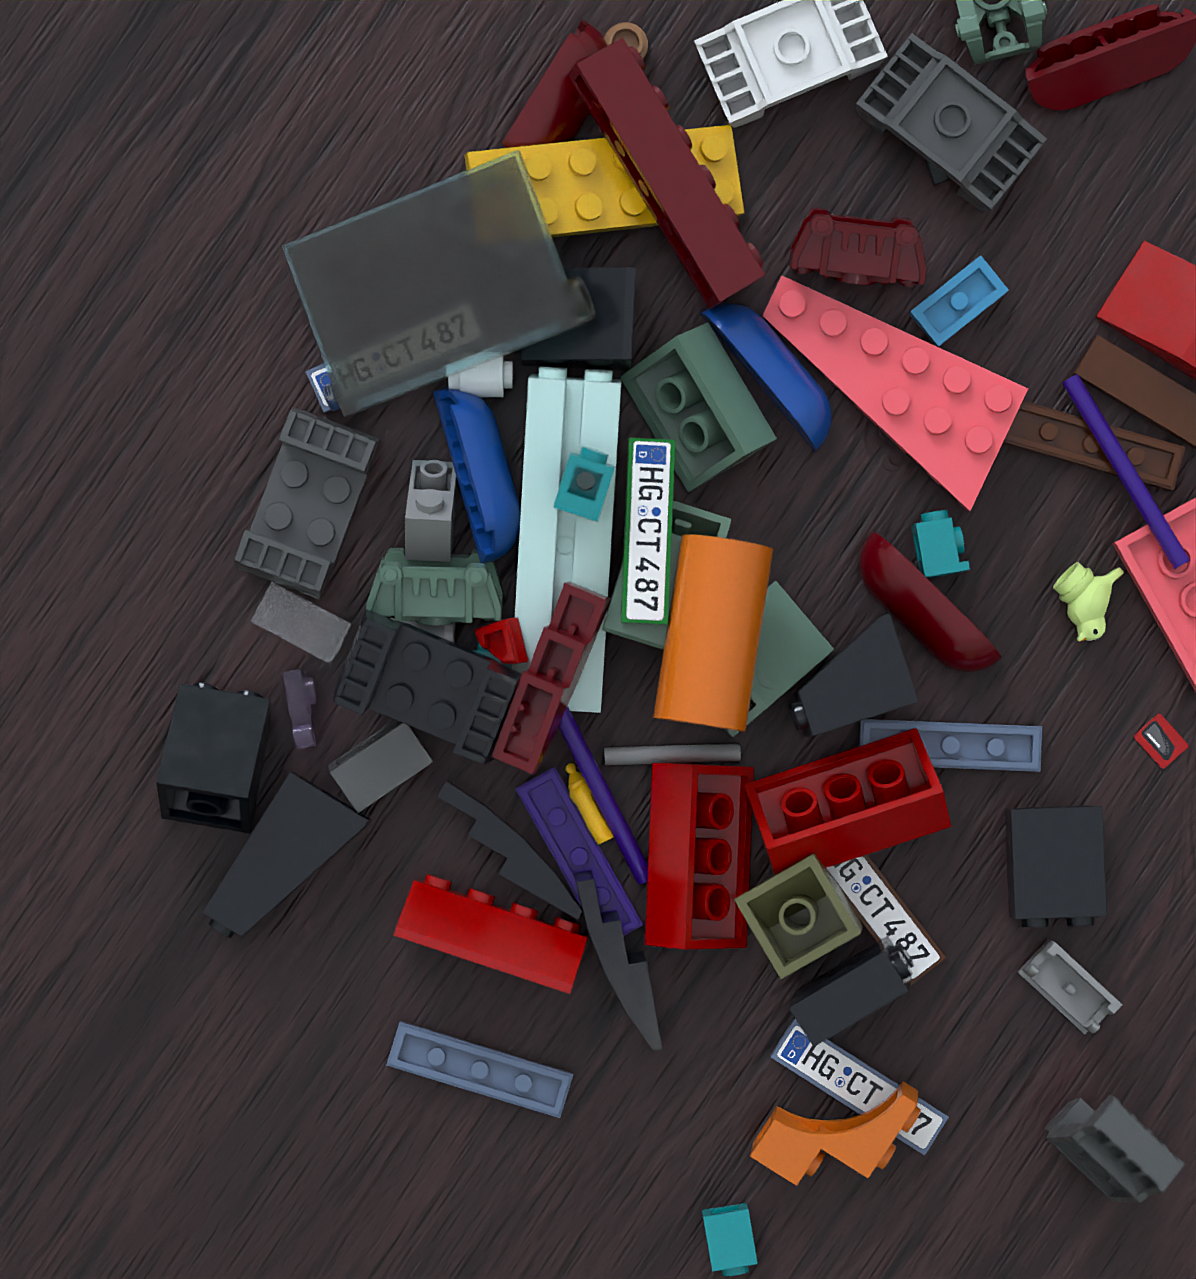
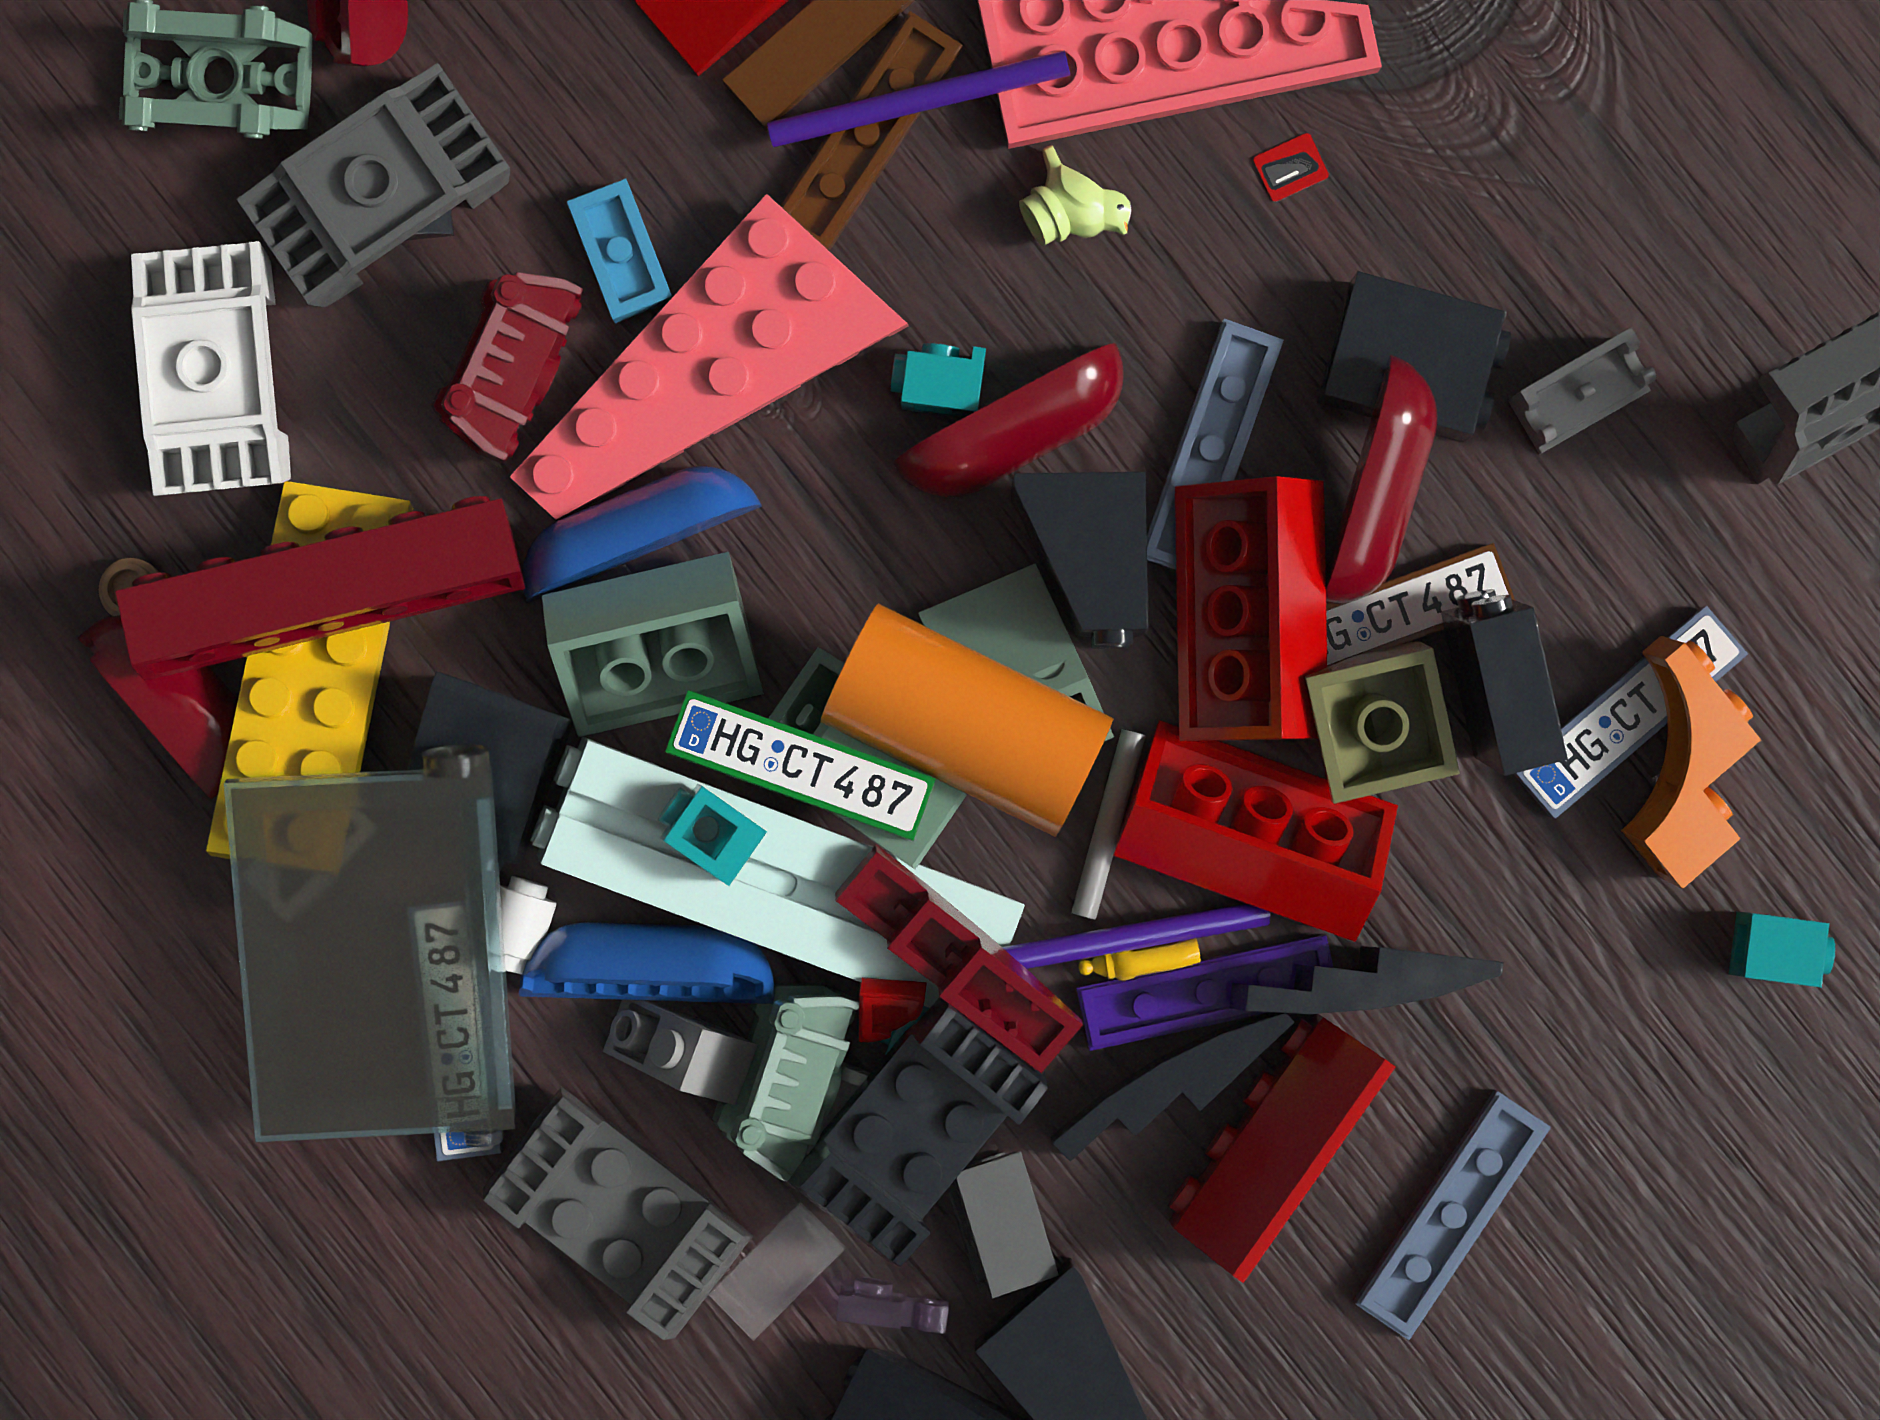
camera: 75 degrees left, 0 degrees up
(961, 869) = (1383, 485): none -> dark red brick

